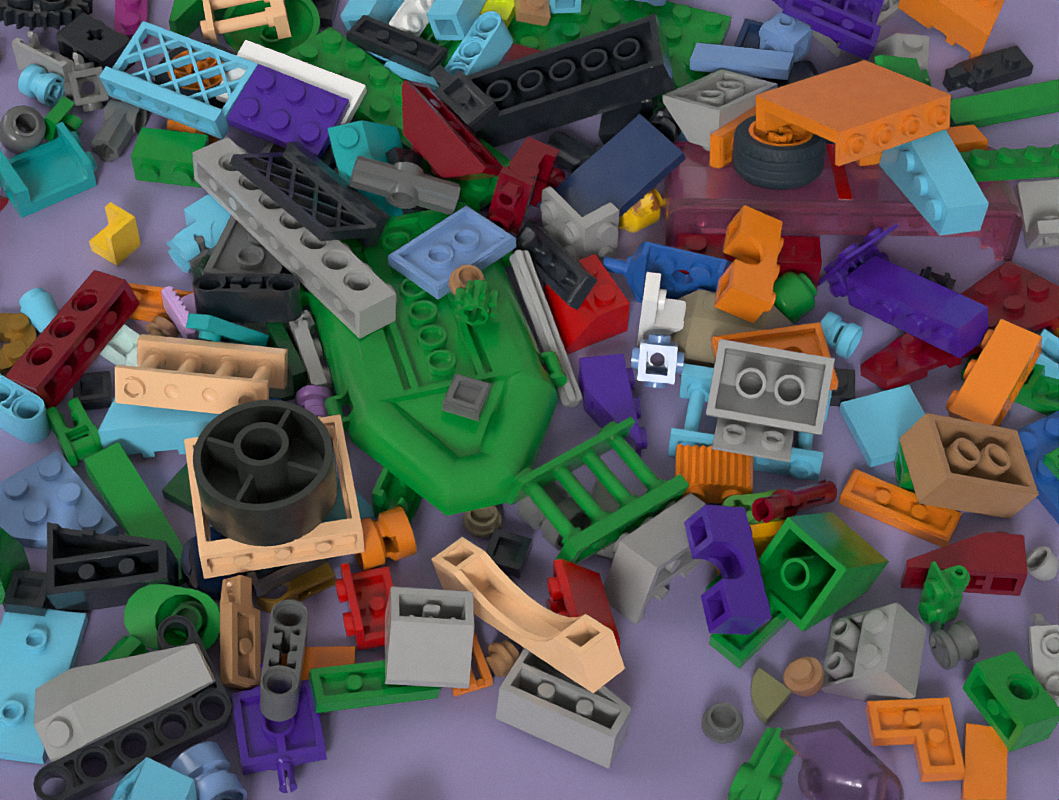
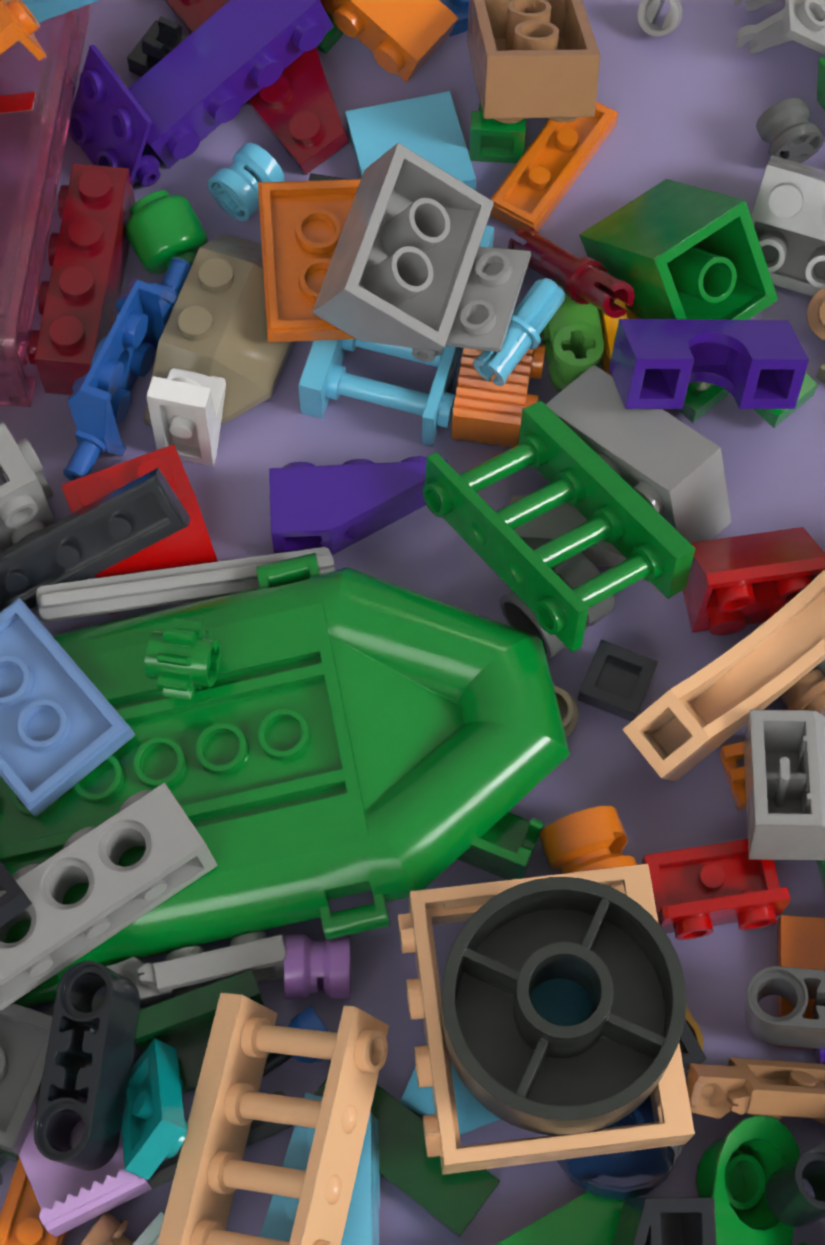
camera: 85 degrees left, 15 degrees up
(461, 275) = (119, 678): medium nougat plate -> none
(467, 397) = (379, 690): dark grey tile -> none
(657, 375) = (279, 425): brick -> none
(736, 467) = (523, 331): none -> medium azure axle
(749, 281) = (111, 232): orange arch -> none
(942, 595) = (739, 121): green hinge -> none
(992, 559) = (661, 83): dark red slope -> none

